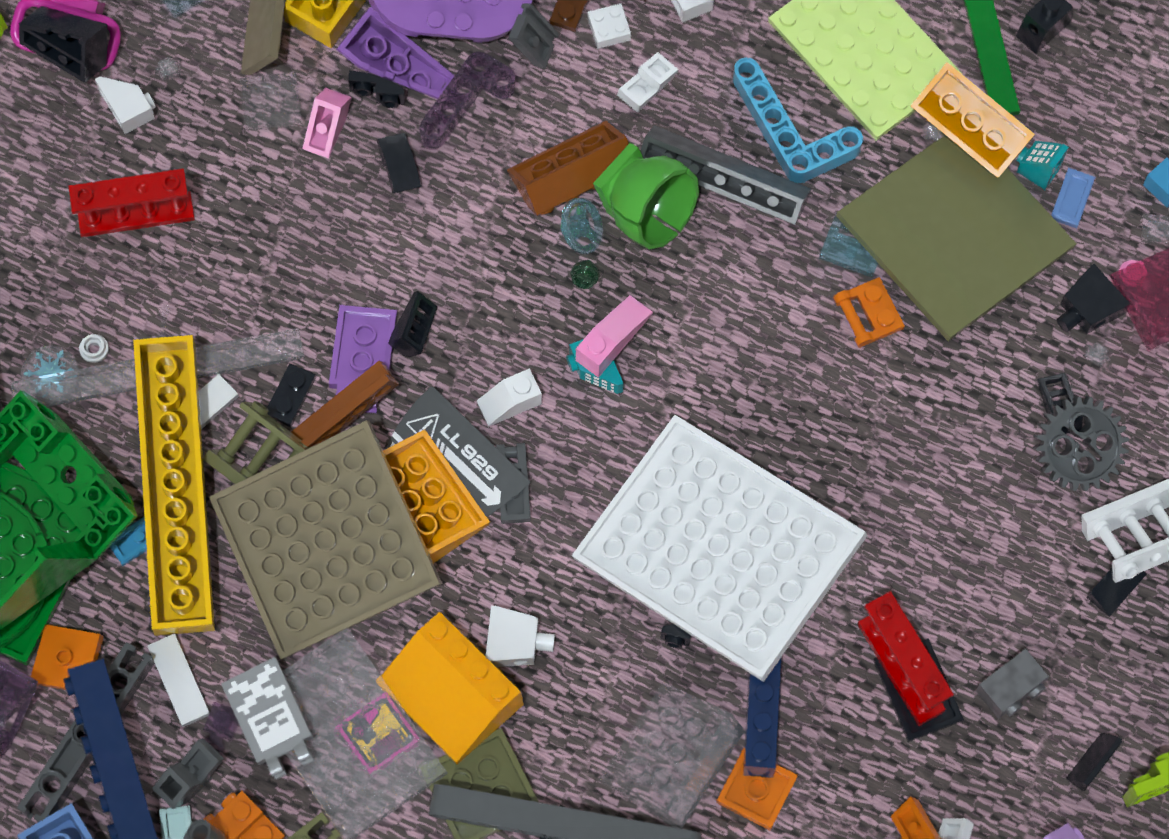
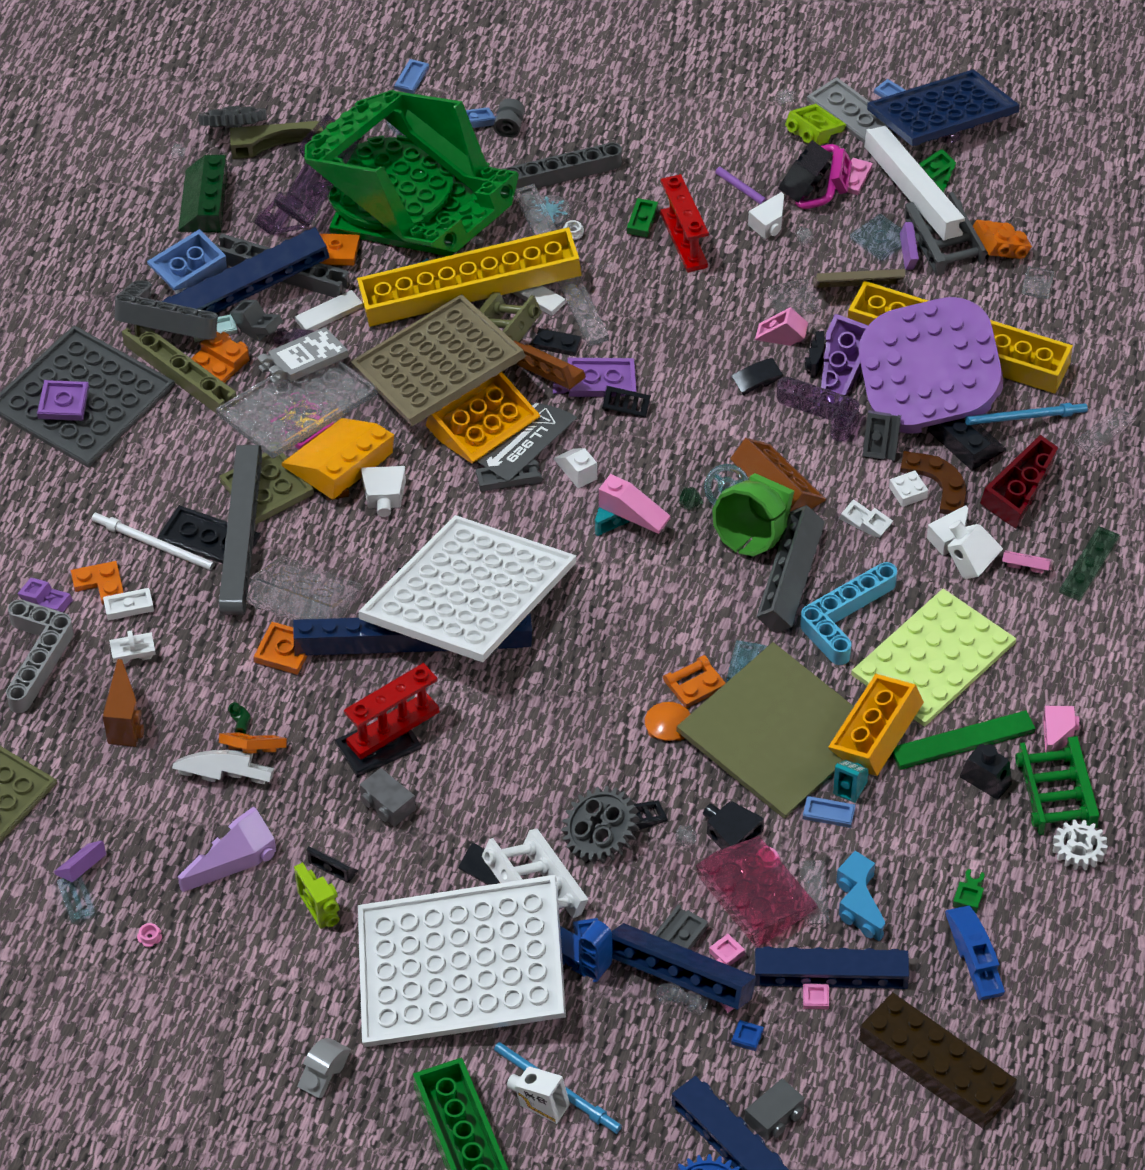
camera: 85 degrees right, 20 degrees down
(54, 130) = (740, 185): none -> medium lavender bar
(90, 258) = (642, 217): none -> green plate
(923, 351) = (663, 720): none -> orange dish

